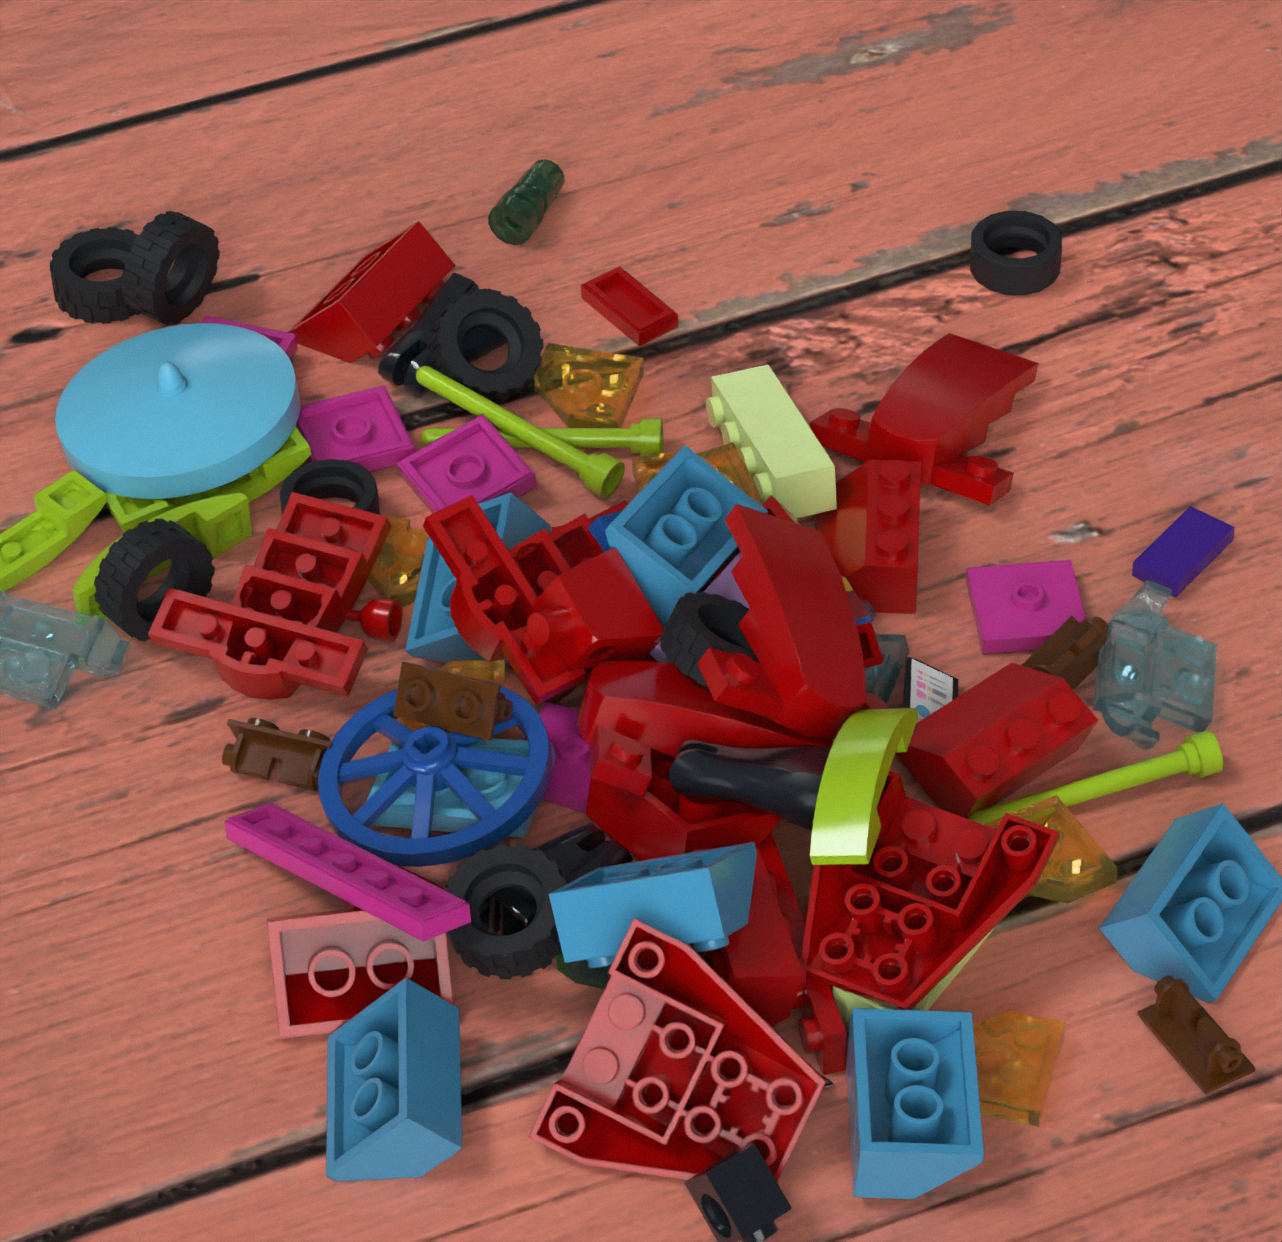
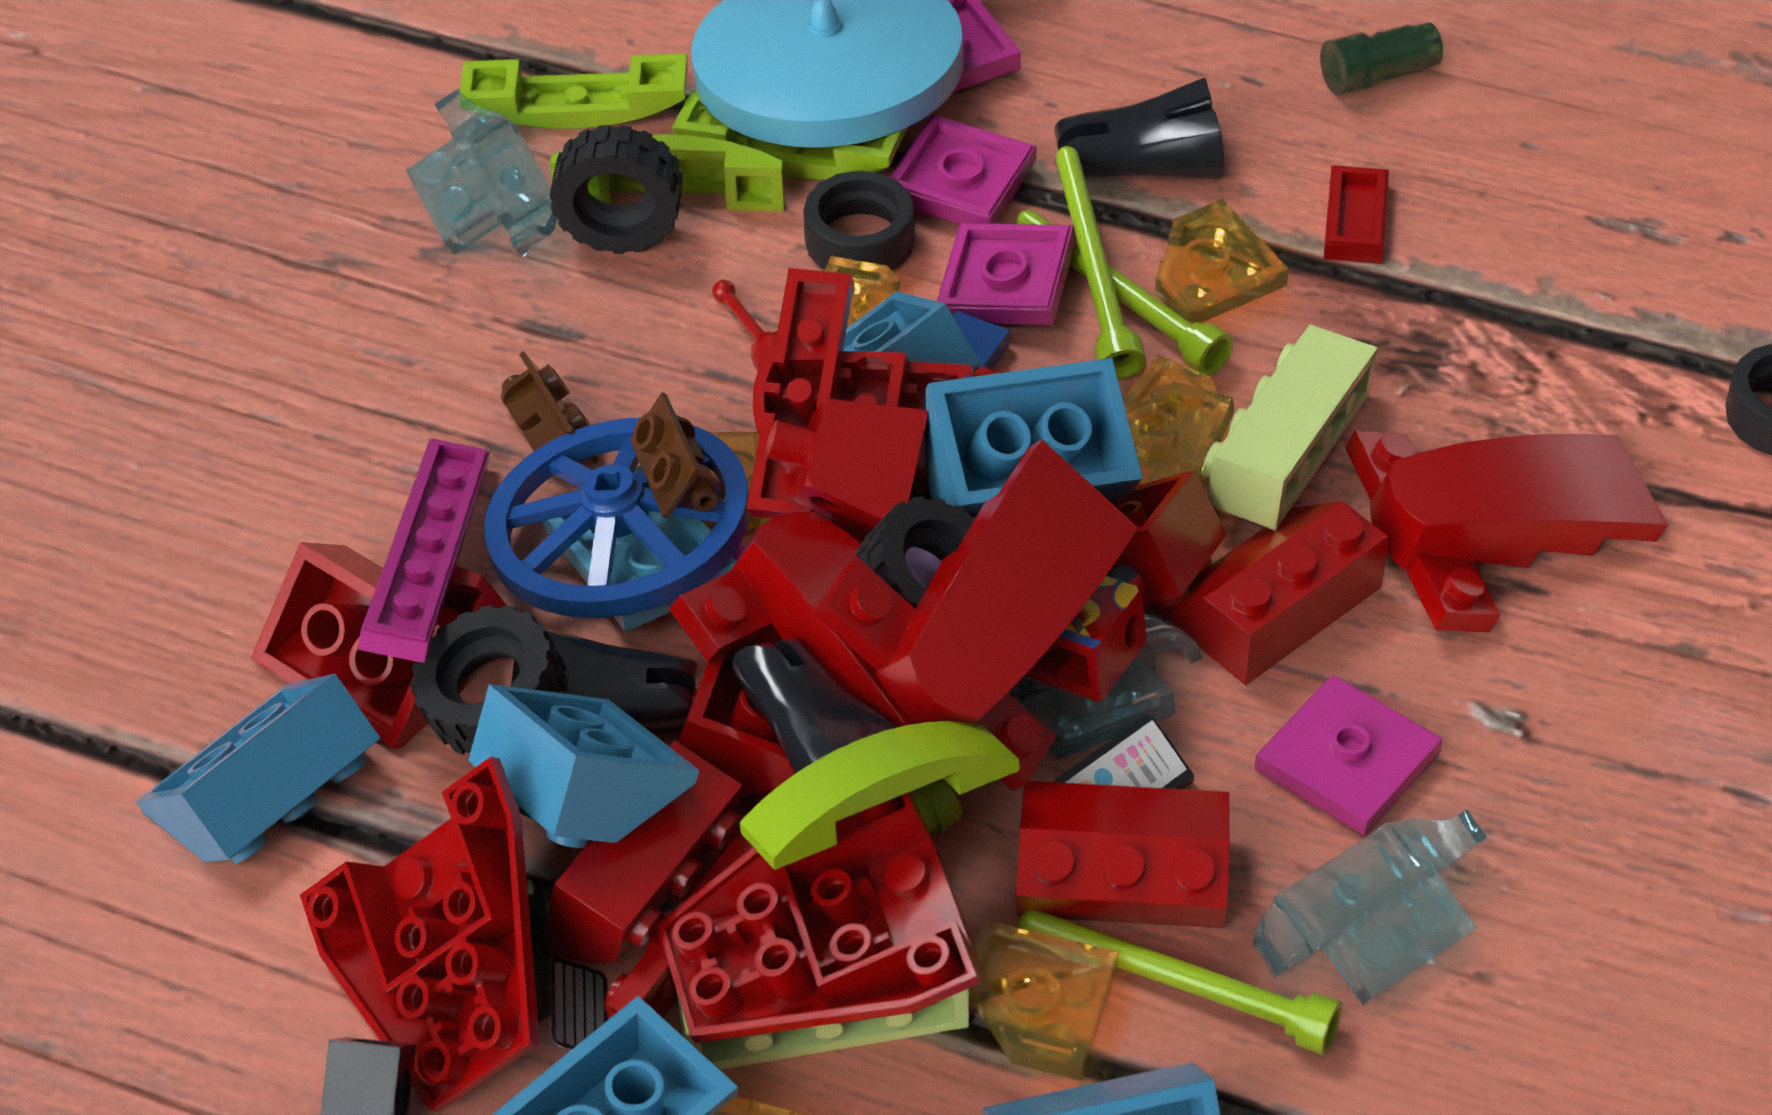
camera: 45 degrees right, 5 degrees up
(285, 605) = (693, 288): red slope -> none
(376, 297) = (1132, 60): red slope -> none
(505, 316) = (1138, 121): black tyre -> none
(1071, 650) = (1295, 831): reddish brown hinge -> none
(1183, 550) = (1573, 812): dark purple tile -> none

